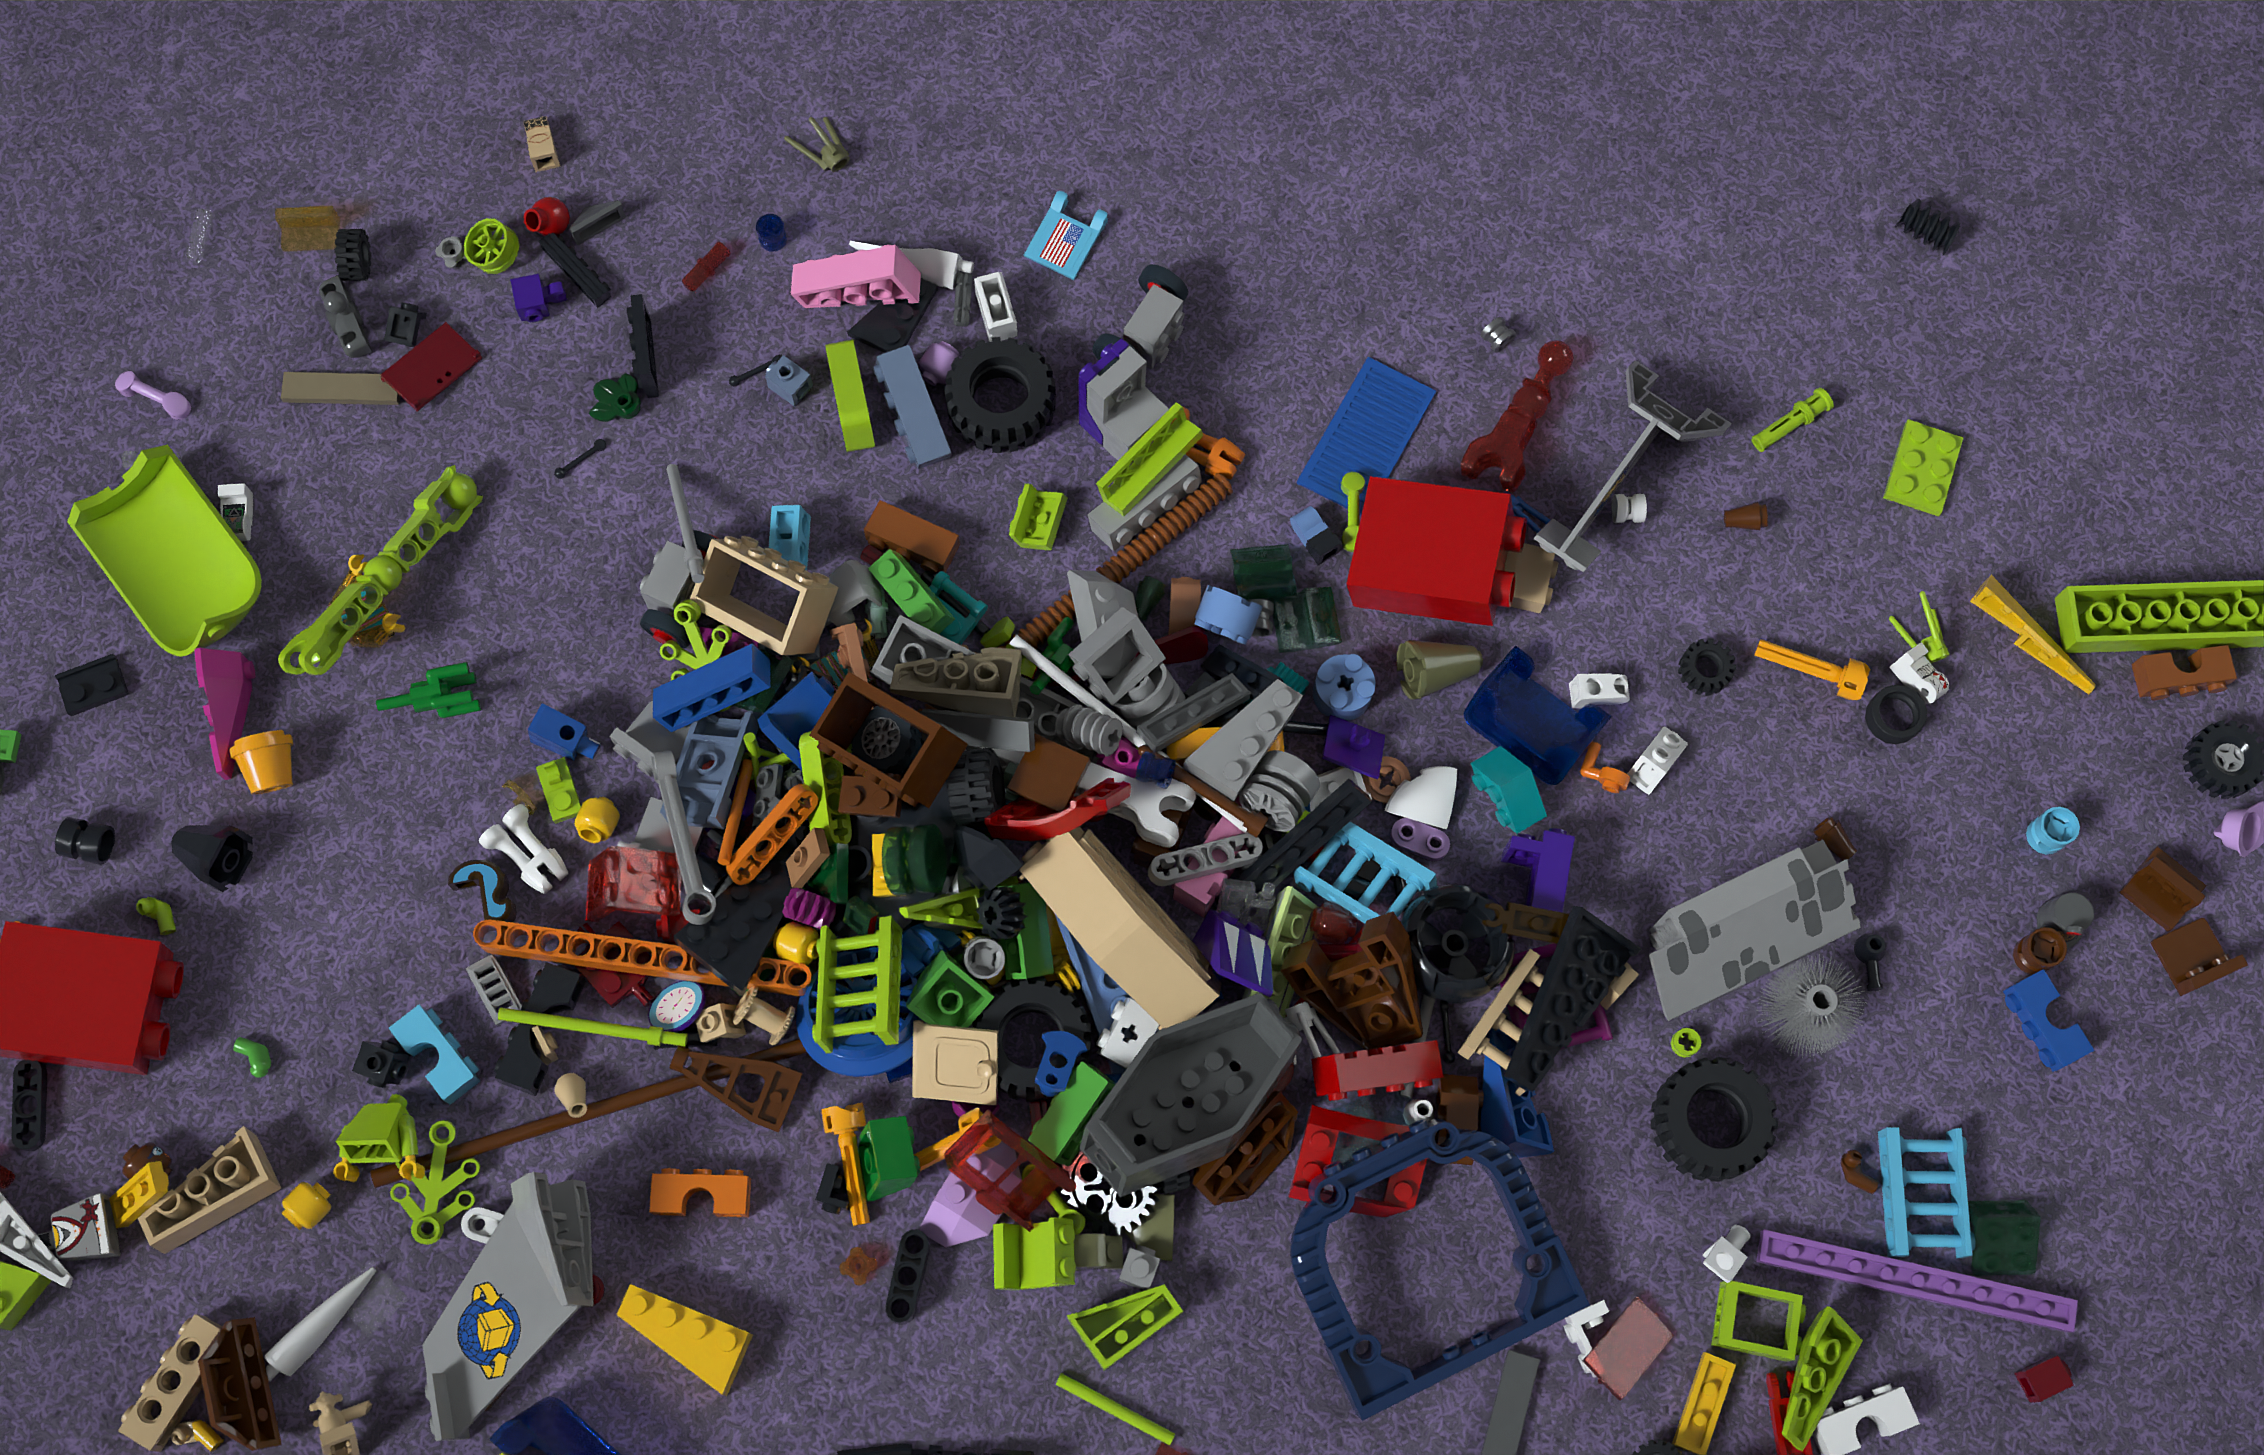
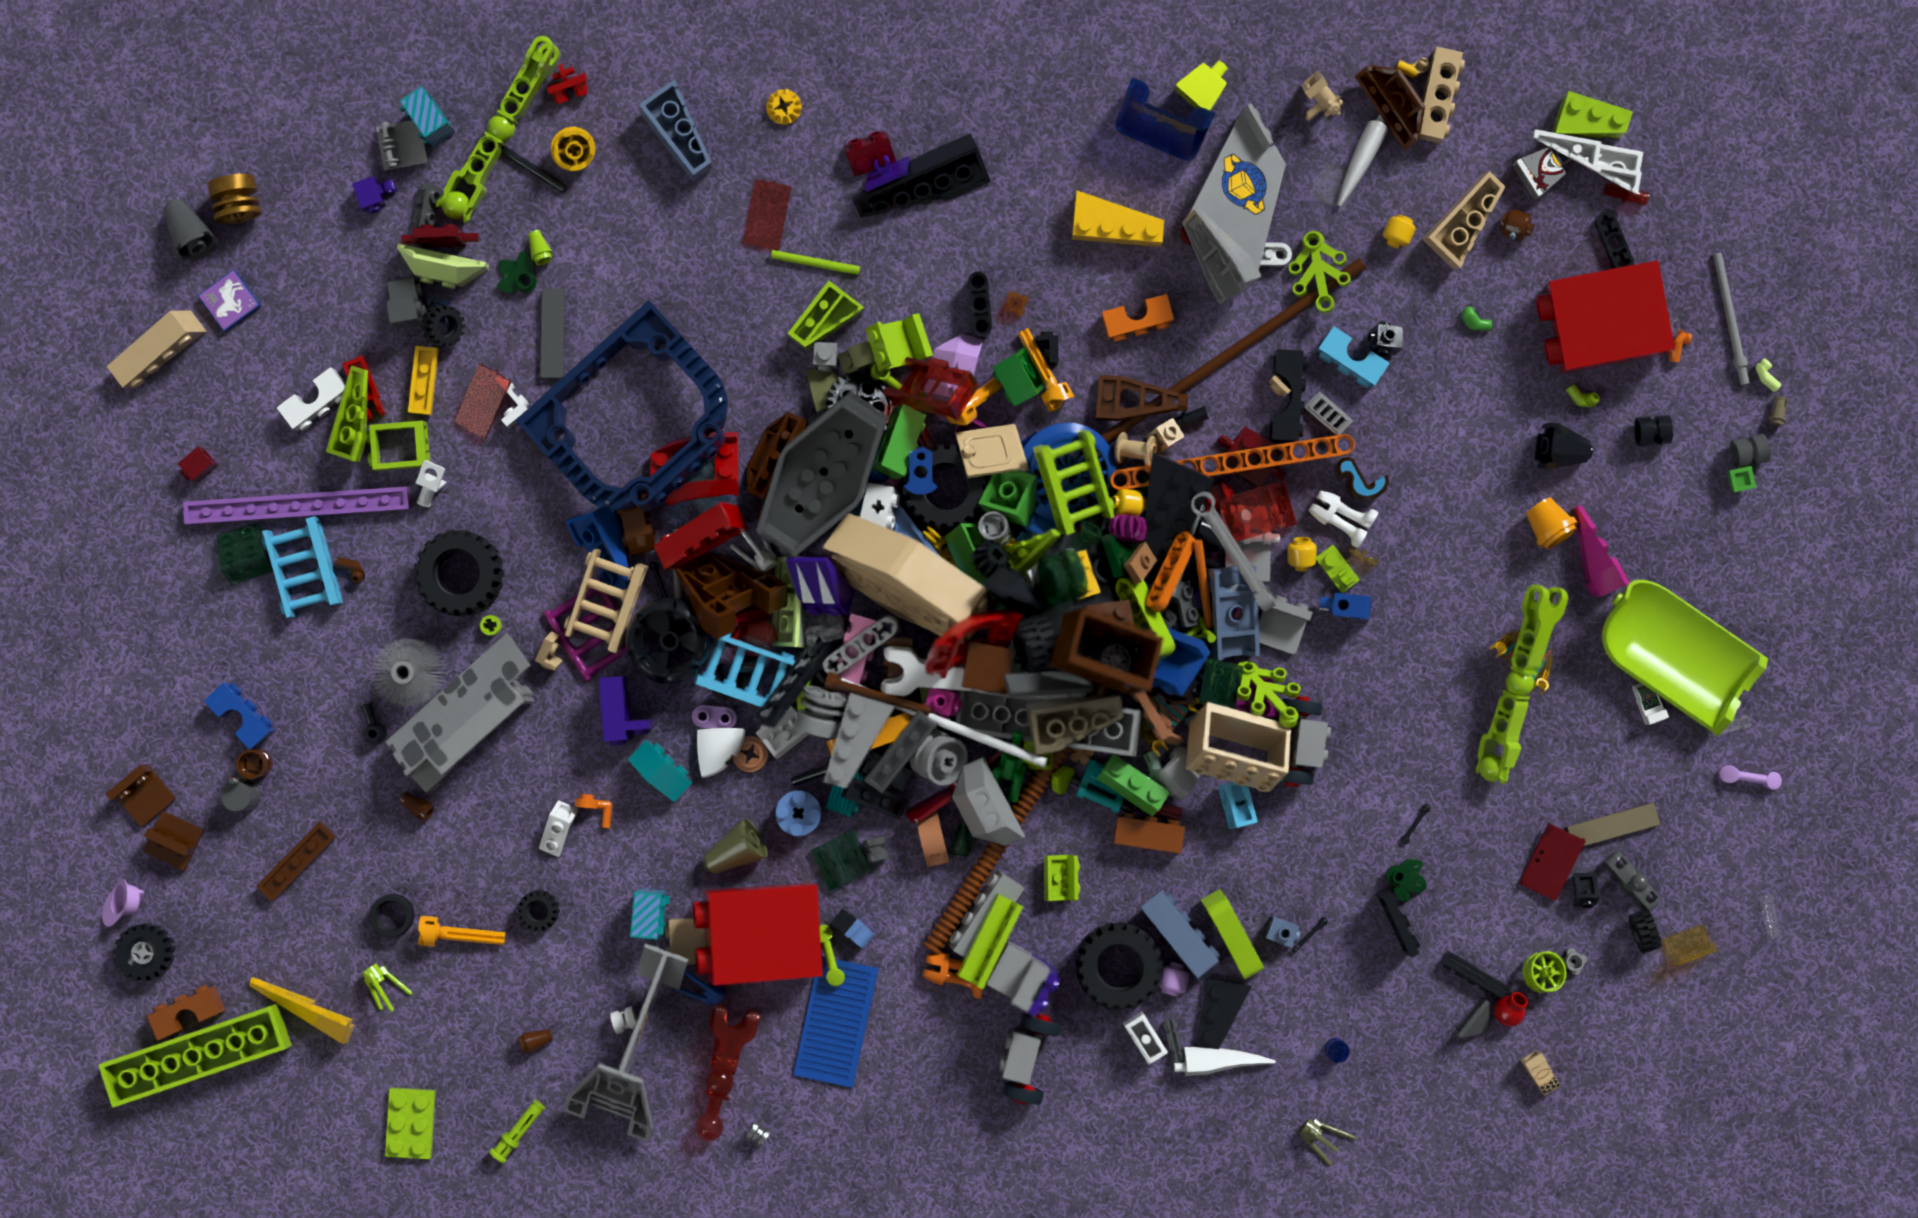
camera: 170 degrees right, 15 degrees up
(92, 685) = (1699, 545): black plate -> none
(139, 1194) = (1511, 202): yellow plate -> none
(379, 1135) = (1367, 289): lime torso -> none
(437, 693) = (1450, 610): green plant -> none
(532, 297) = (1497, 940): dark purple brick -> none
(572, 1093) = (1248, 358): tan cone -> none
(653, 1035) = (1205, 411): lime bar -> none
(677, 1006) = (1198, 437): piece -> none
(693, 556) = (1297, 758): light grey bar -> none
(706, 266) = (1377, 1007): clear red axle -> none
(711, 688) = (1251, 667): blue brick -> none
(855, 278) = (1258, 1027): bright pink wedge -> none
(1063, 241) = (1113, 1114): medium azure flag -> none
(1089, 729) = (969, 712): light grey piece -> none
(1101, 640) = (977, 781): light grey window -> none
(1159, 771) = (913, 695): clear blue wheel -> none
(1228, 613) = (897, 837): medium blue brick -> none
(1263, 572) = (882, 886): clear green slope -> none
(1353, 747) = (779, 769): dark purple piece -> none
(1411, 1114) = (668, 523): white cone -> none
(1528, 921) = (620, 665): dark brown plate -> none
(1532, 721) = (654, 830): clear blue windscreen -> none
(1567, 618) = (648, 913): none -> teal container
(1571, 990) = (580, 624): black wing -> none
(1599, 689) = (613, 868): white leg -> none
(1920, 675) = (380, 950): white leg -> none
(2006, 815) = (296, 861): none -> reddish brown plate
(2053, 830) = (261, 857): medium azure wheel -> none

